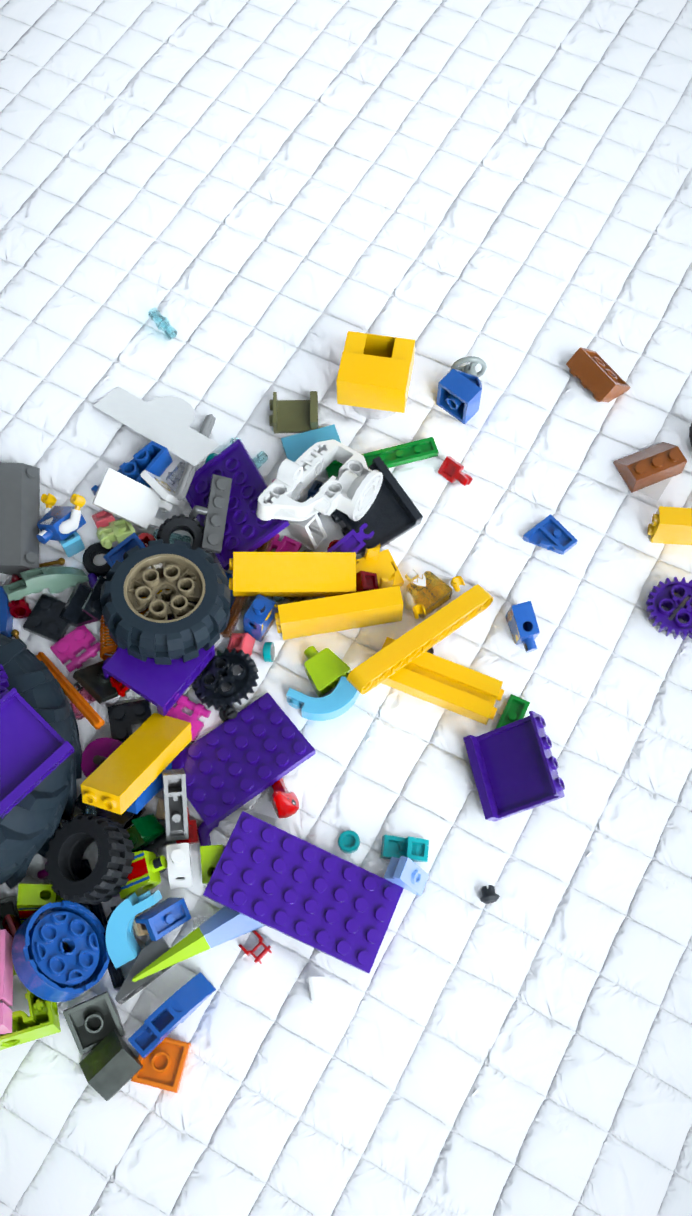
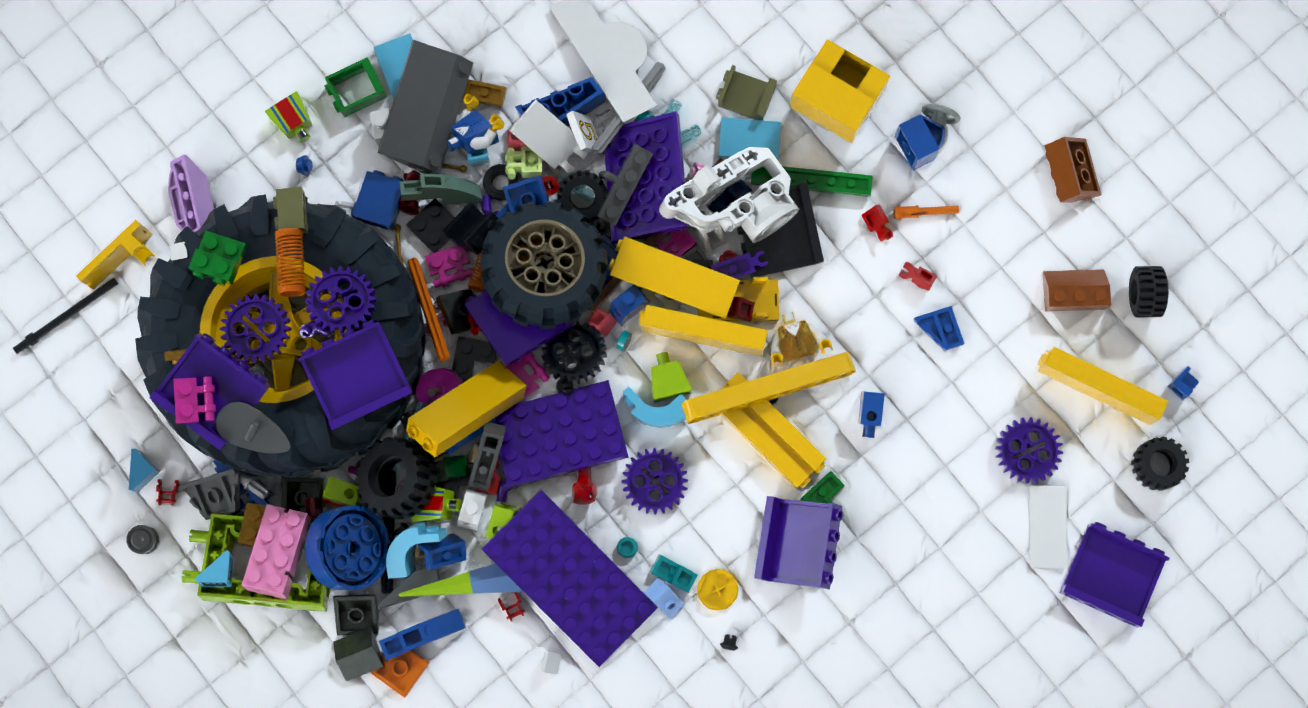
camera: 25 degrees right, 15 degrees up
(61, 490) = (486, 93): none -> pearl gold plate
(341, 784) = (668, 468): none -> dark purple gear
(454, 847) = (717, 589): none -> yellow tile
(476, 455) = (916, 211): none -> orange pin
(515, 502) = (920, 276): none -> red plate

